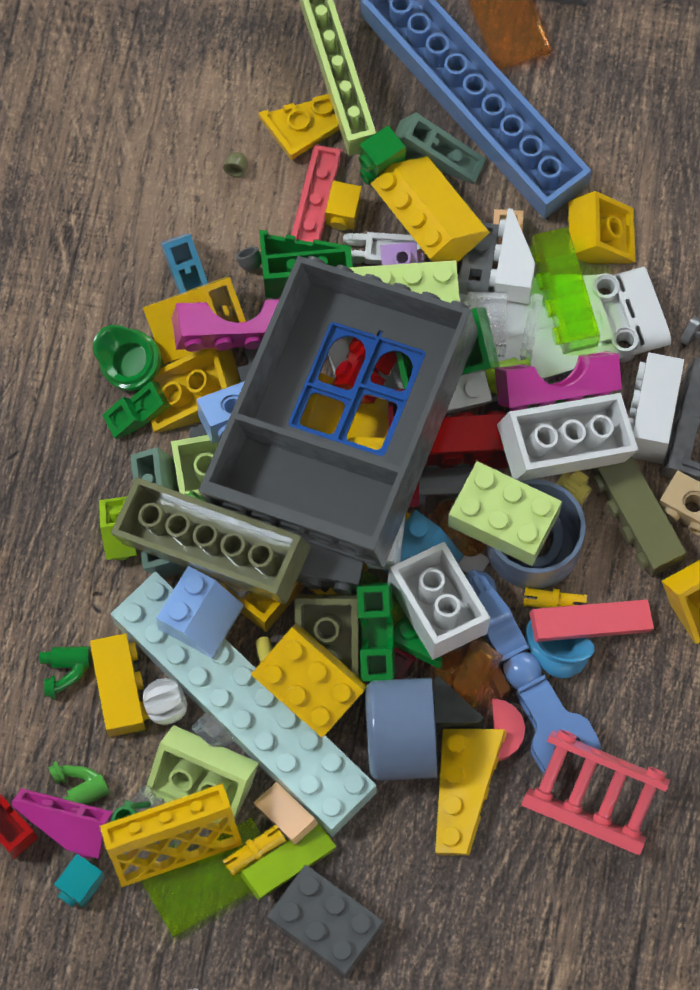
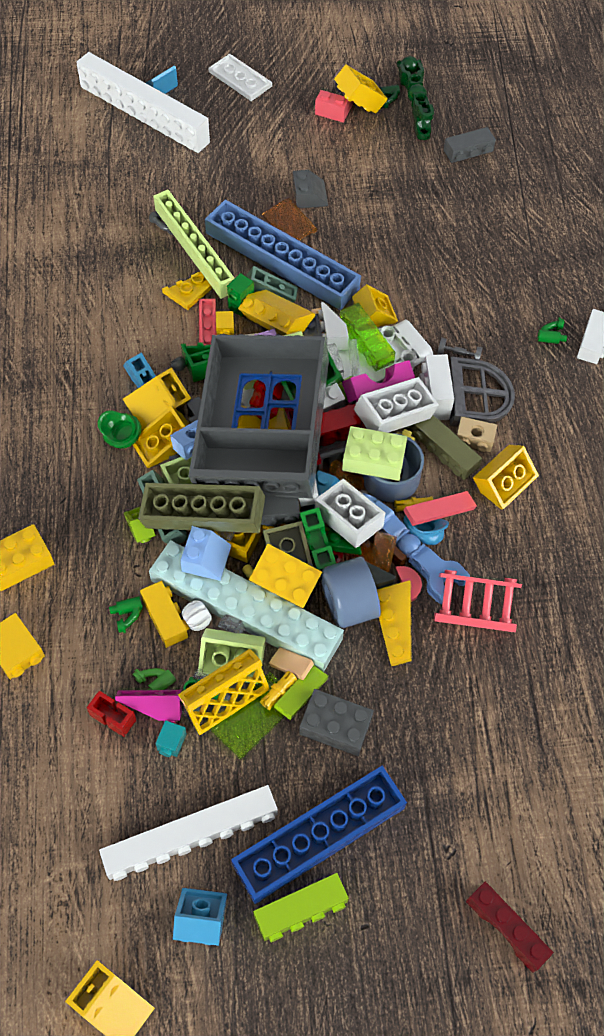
camera: 20 degrees left, 10 degrees down
(133, 413) = (130, 460): green slope -> none
(200, 328) = (163, 397): dark pink arch -> none
(236, 165) = (156, 318): olive hinge -> none

